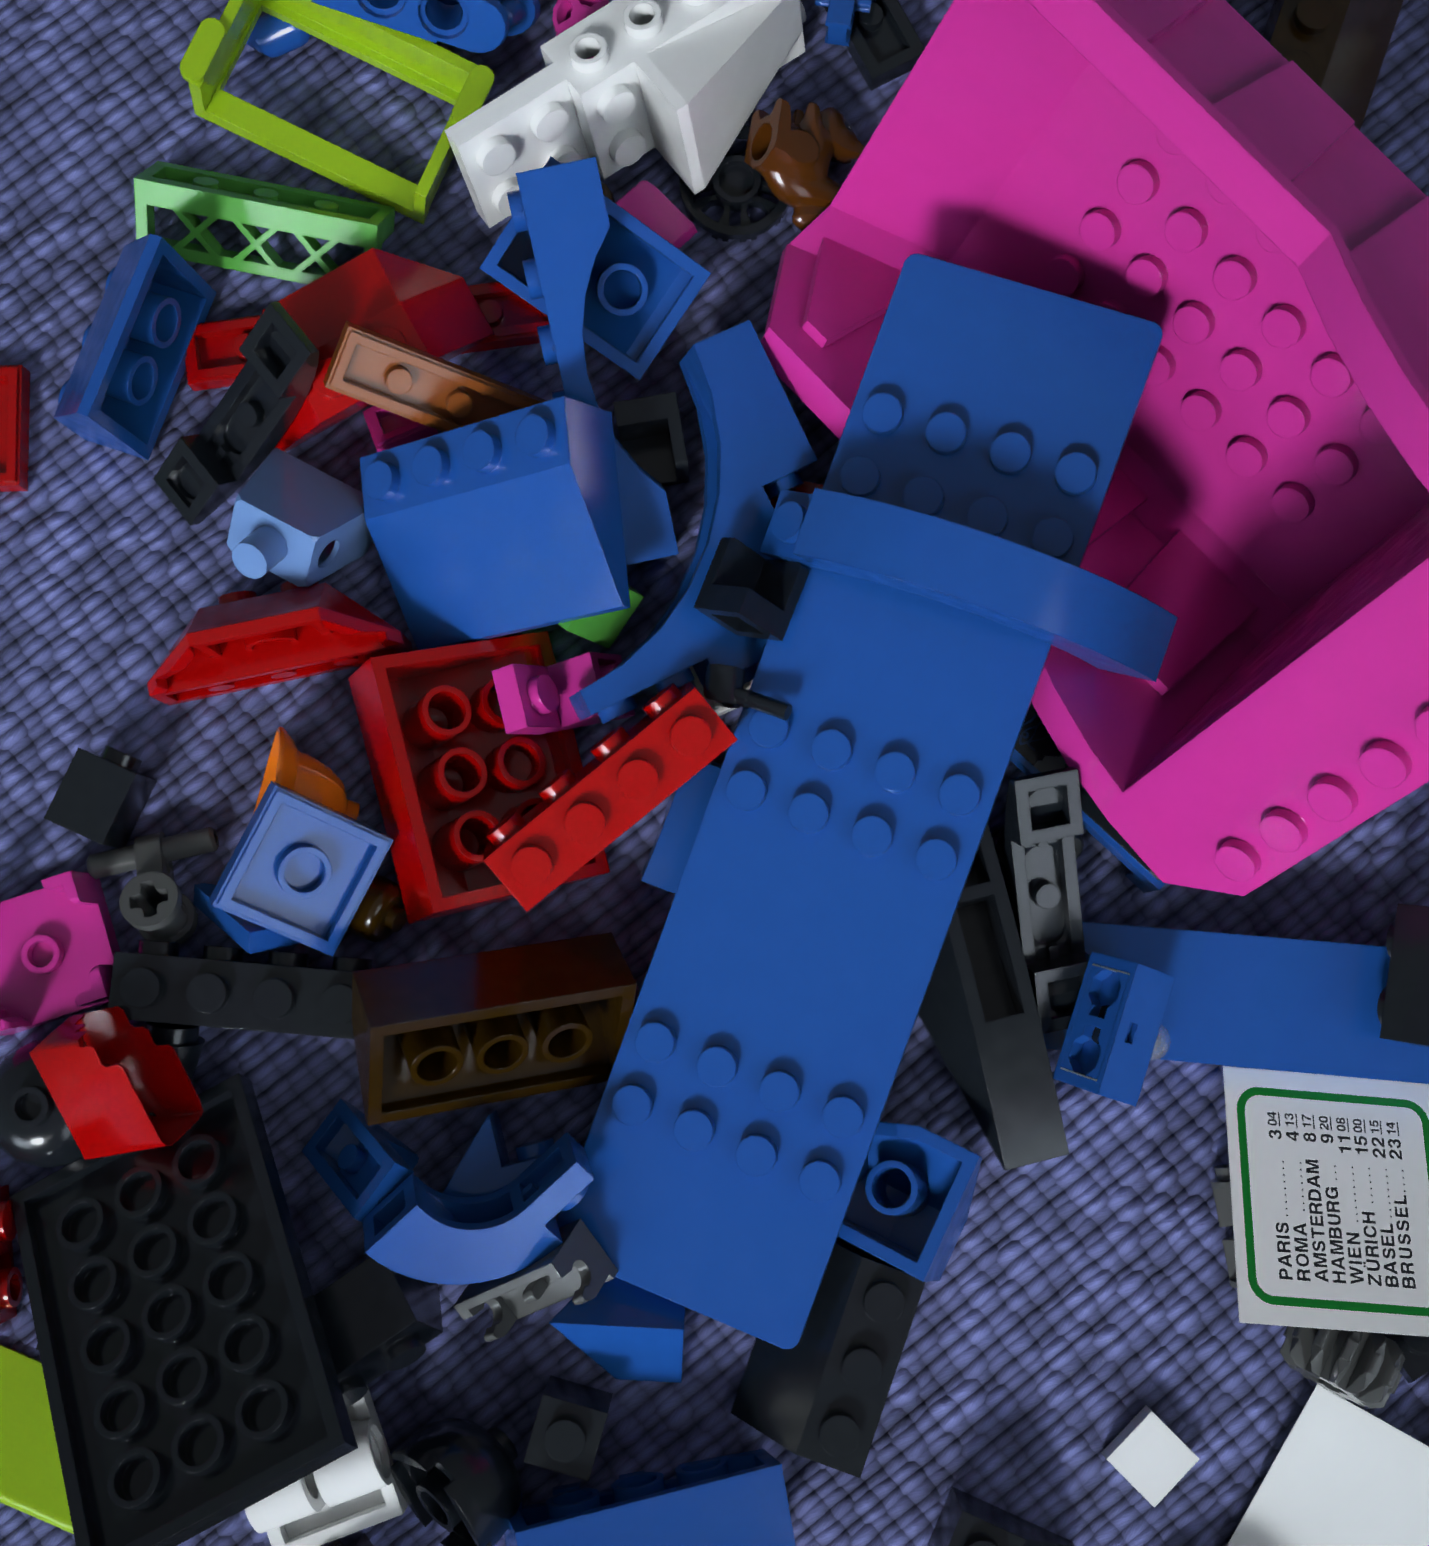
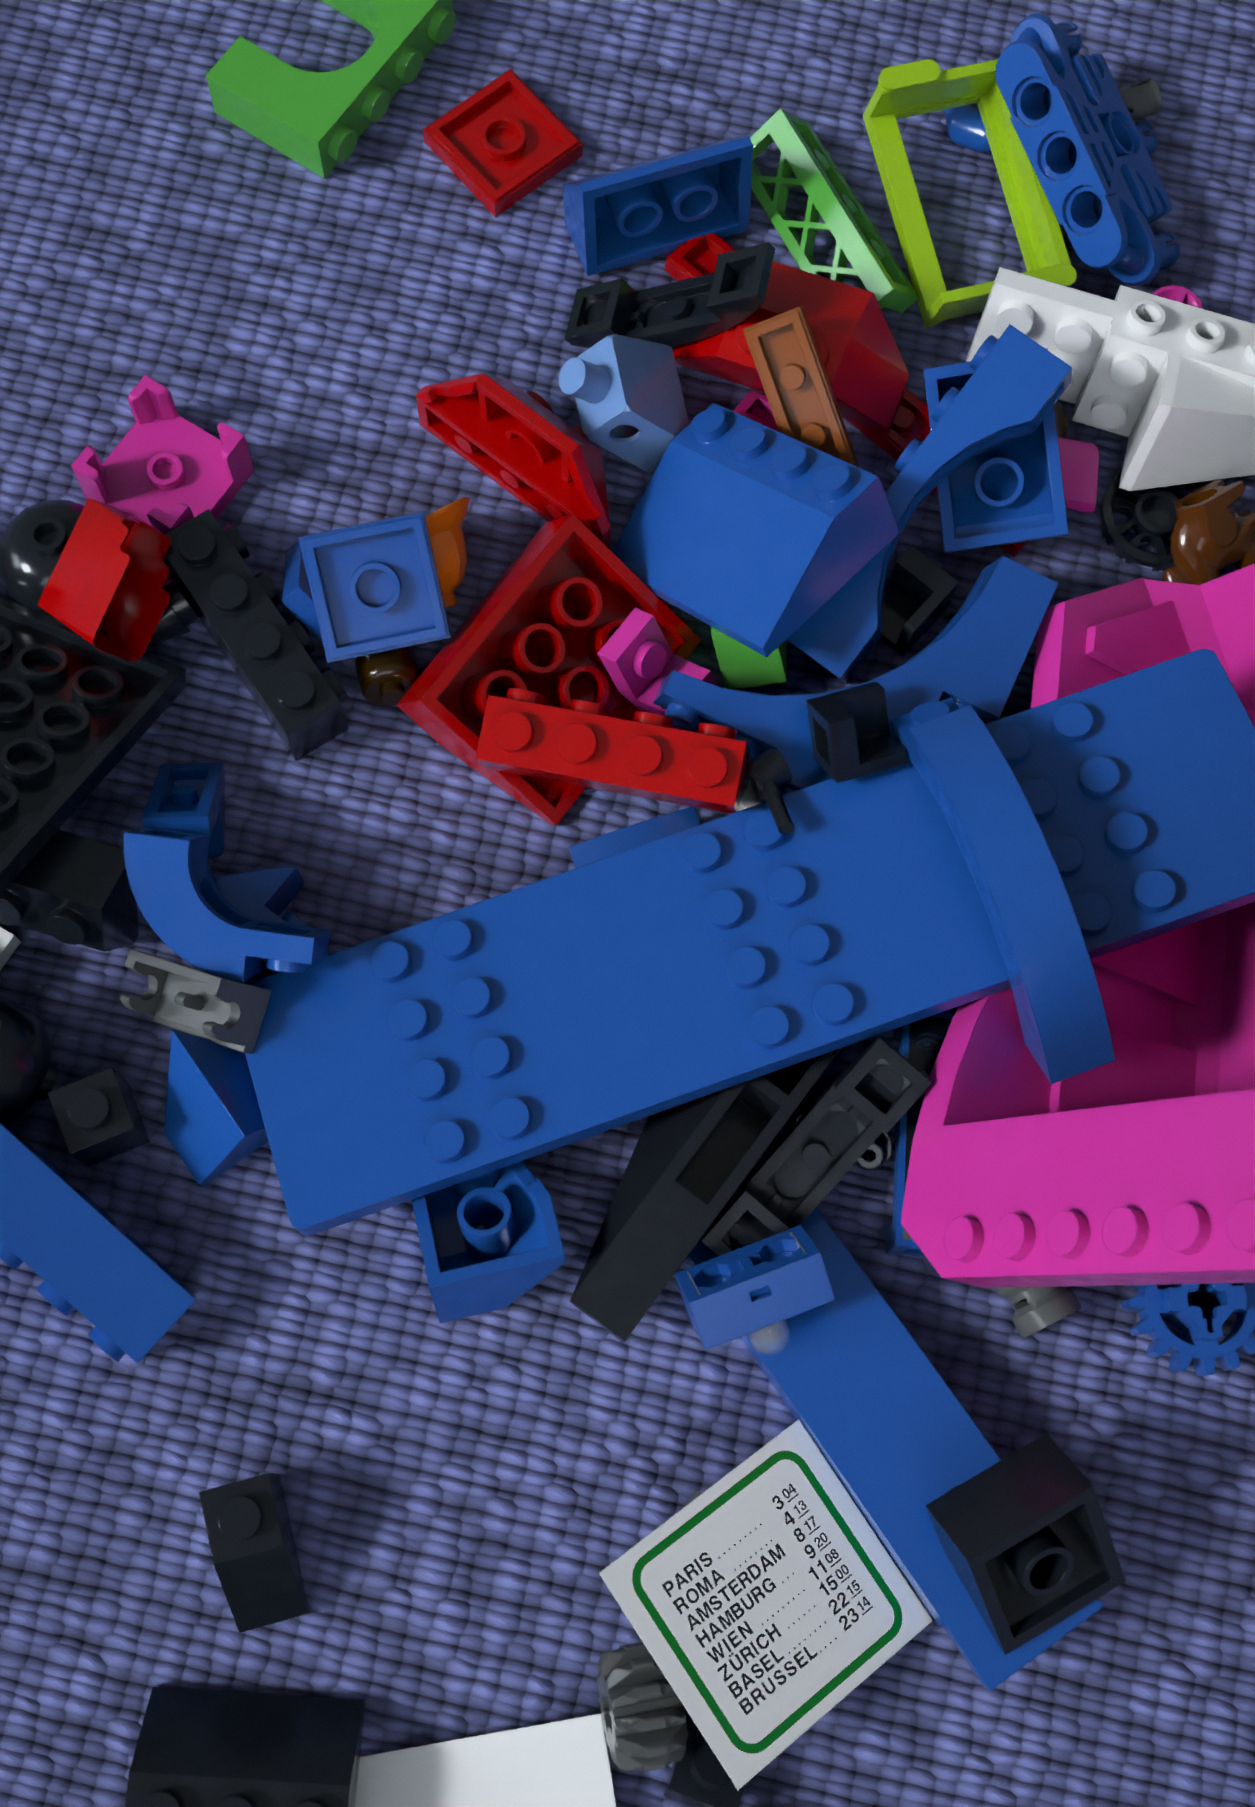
camera: 45 degrees right, 10 degrees down
(101, 796) = (315, 424): black brick -> none
(152, 897) = (274, 506): dark grey piece -> none
(489, 1025) = (365, 811): dark brown slope -> none
(835, 1382) = (301, 1291): black slope -> none
(1150, 1456) = (430, 1619): white tile -> none

